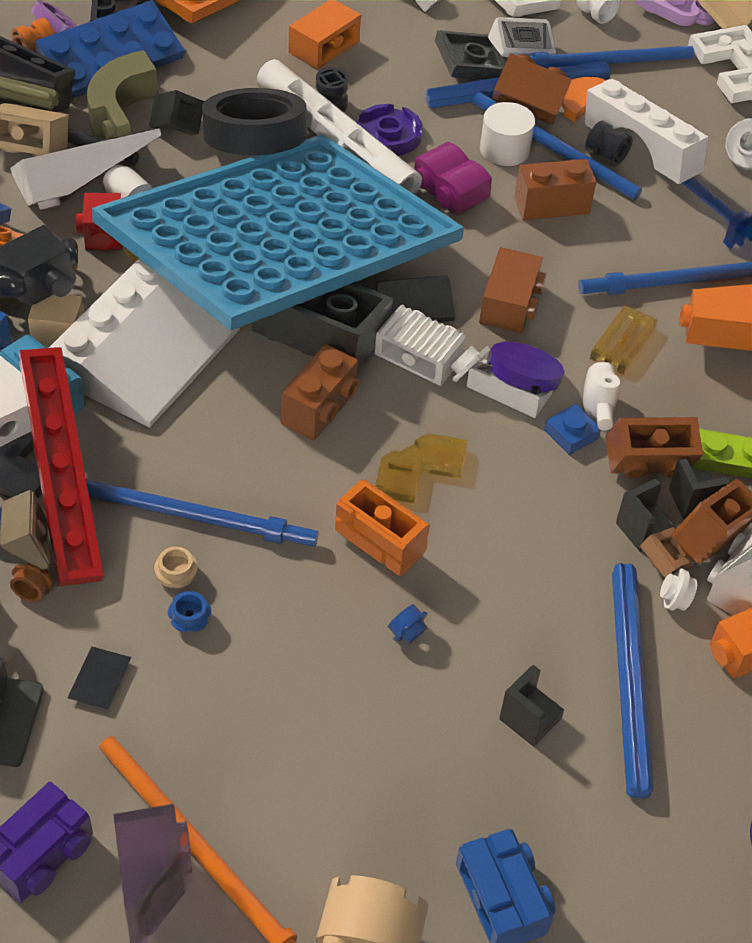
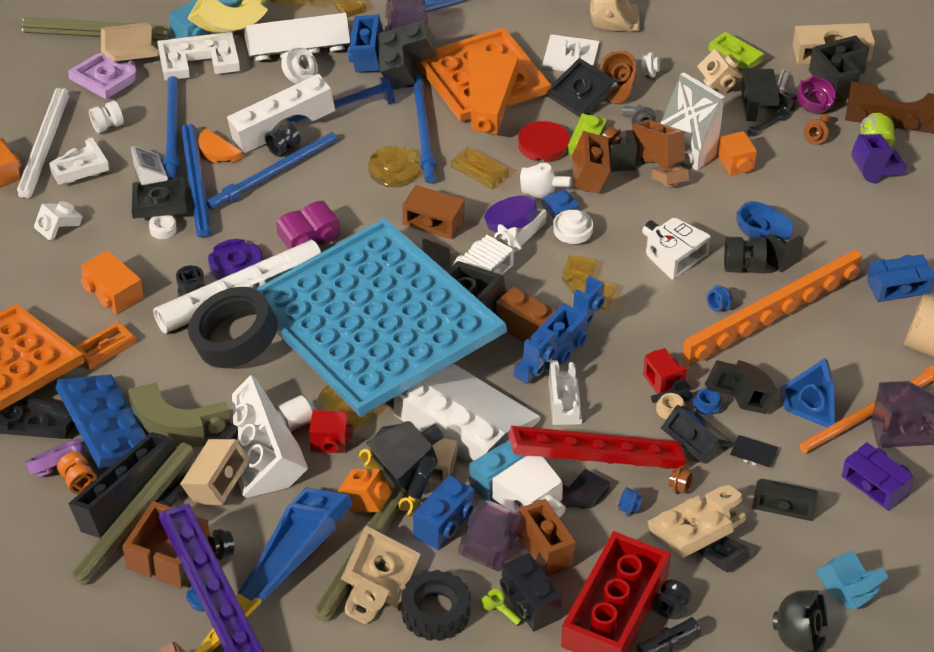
camera: 80 degrees left, 5 degrees down
(25, 529) = (647, 469): dark tan slope -> none
(127, 601) = (694, 433): none -> black panel
(176, 111) = (200, 382): pearl dark grey panel -> none
(185, 440) = (564, 395): none -> white hinge
(205, 574) = (680, 388): none -> black hand
(209, 754) = (812, 395): none -> blue slope
(217, 652) = (745, 382): none -> pearl dark grey brick
(231, 47) = (106, 348): none -> orange tile
(238, 551) = (662, 370): none -> red brick
(273, 529) = (637, 362): blue bar -> none
(279, 419) = (561, 332): none -> blue bracket
(381, 527) = (652, 296): orange brick -> none
(408, 704) = (771, 307): none -> orange plate
(432, 69) = (162, 226): none -> white tile
(502, 647) = (735, 254): none -> pearl dark grey wheel
(506, 561) = (675, 246): none -> white torso
(507, 134) = (264, 190): white piece -> none
(522, 440) = (573, 226): none -> white plate
(532, 87) = (222, 164): dark orange brick -> none
(554, 189) = (333, 173): dark orange brick -> none
(585, 656) = (759, 220): none -> blue cap
(597, 252) = (394, 166): none -> clear yellow tile
(632, 682) = (732, 205): blue axle -> none
(640, 514) = (642, 183): pearl dark grey panel -> none
(678, 590) = (699, 176): white plate -> none
(704, 397) = (543, 141): none -> red tile
(732, 471) = (613, 136): none -> dark orange plate

